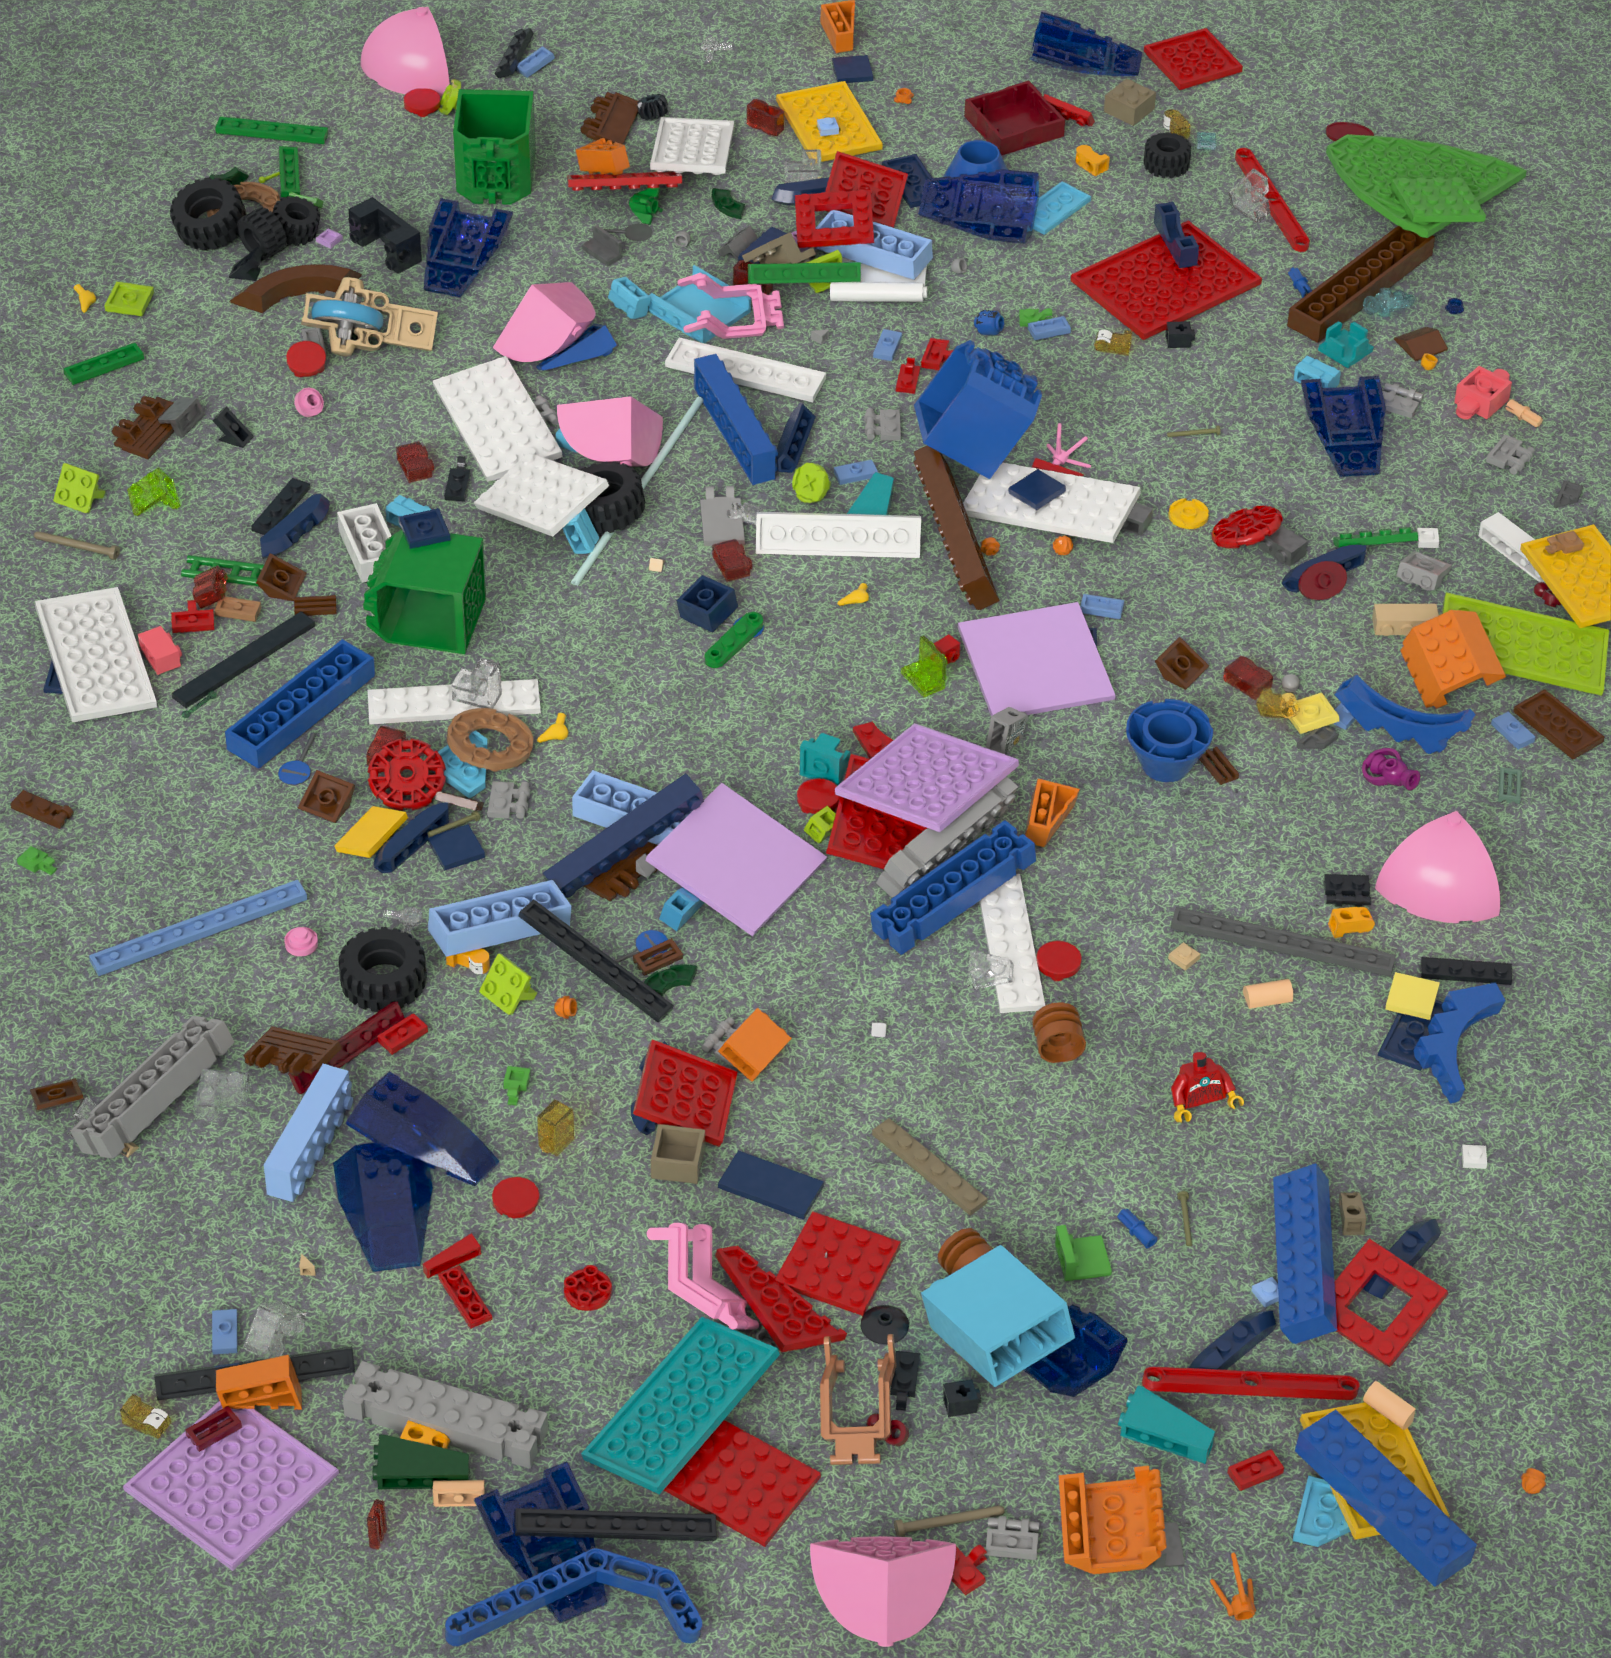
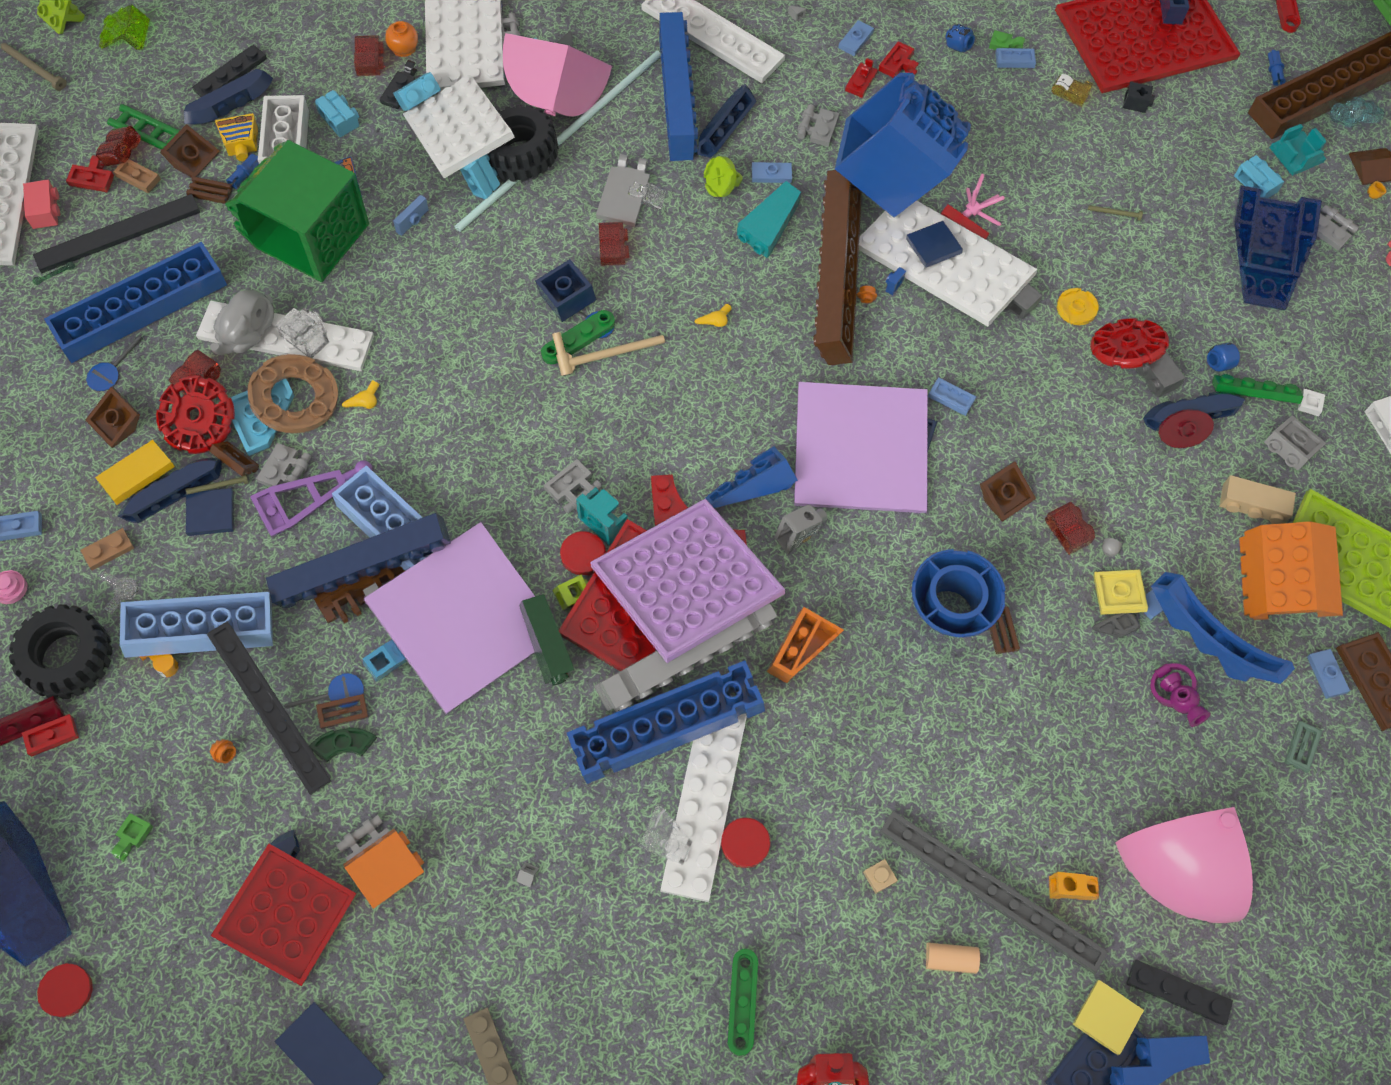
camera: 15 degrees right, 20 degrees up
(321, 554) = (239, 135): none -> yellow torso
(342, 582) = (243, 171): none -> blue axle
(375, 895) = (107, 549): none -> medium nougat plate
(416, 692) = (242, 322): none -> light grey piece
(424, 528) = (302, 147): dark blue tile -> none
(442, 439) = (401, 38): none -> orange piece
(482, 478) = (417, 91): none -> medium azure brick
(507, 985) = (177, 707): lime bracket -> none
(520, 832) = (272, 511): none -> medium lavender plate
(526, 580) = (411, 215): none -> medium blue plate
(555, 1128) = (131, 921): clear yellow brick -> none
(656, 564) = (542, 227): tan piece -> none
(677, 1154) = (243, 995): dark tan piece -> none
(735, 660) = (567, 363): none -> tan bar
(778, 751) = (568, 481): none -> light grey plate
(821, 858) = (546, 640): none -> dark green slope
(838, 534) = (723, 243): white plate -> none
(929, 671) = (747, 429): clear neon green bracket -> none
(949, 647) = (777, 409): red plate -> none
(957, 700) = (766, 476): none -> blue wedge
(1011, 529) = (894, 280): none -> blue plate
(1059, 1032) = (703, 960): dark orange wheel -> none
(1063, 545) = (939, 312): orange plate -> none
(1104, 1063) = (742, 1002): none -> green plate
(1277, 705) = (1088, 575): clear yellow leg -> none
(1336, 520) = (1223, 357): none -> blue head
(1347, 890) = (1085, 831): black plate -> none

